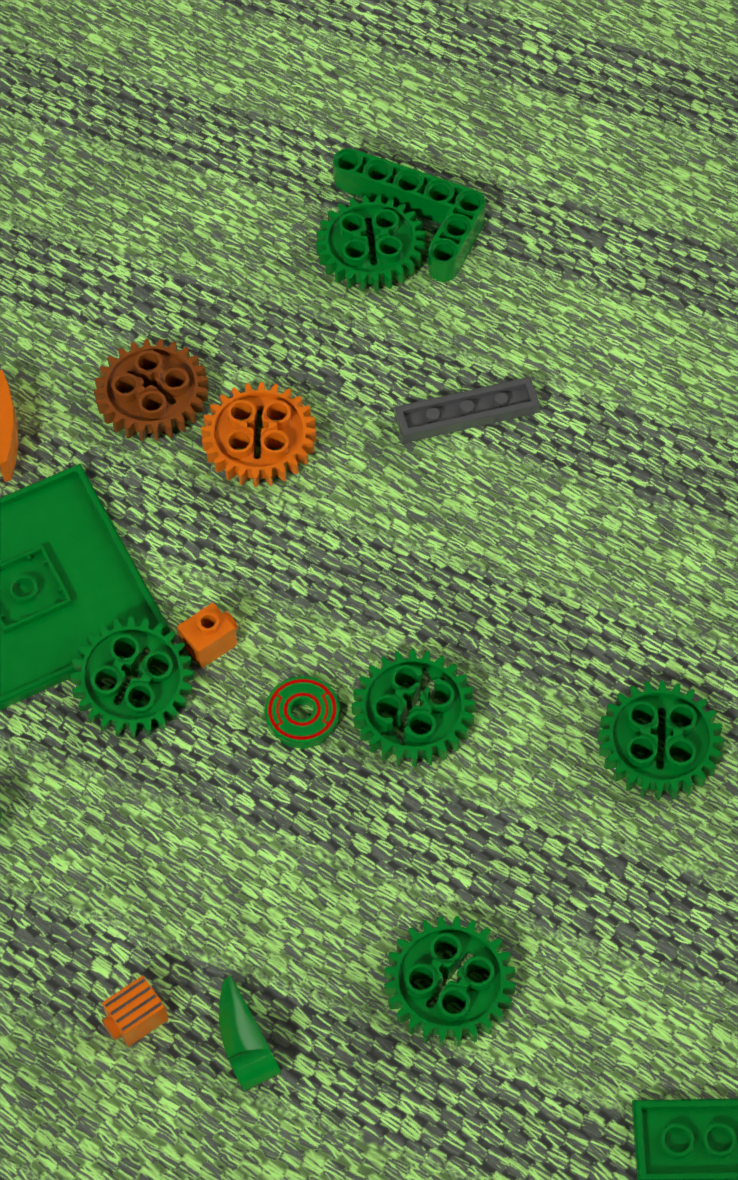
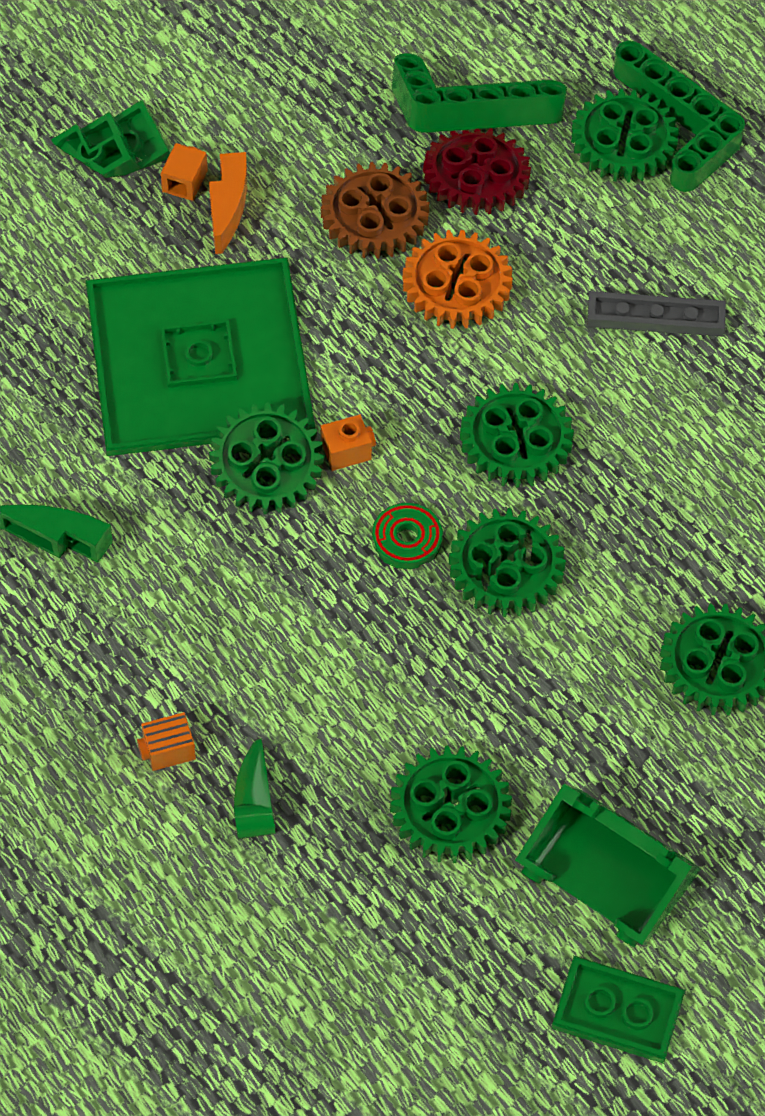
camera: 15 degrees right, 0 degrees up
(211, 258) = (472, 106): none -> green beam
(238, 320) = (476, 170): none -> dark red gear
(403, 558) = (546, 428): none -> green gear
(633, 992) = (607, 864): none -> green windscreen

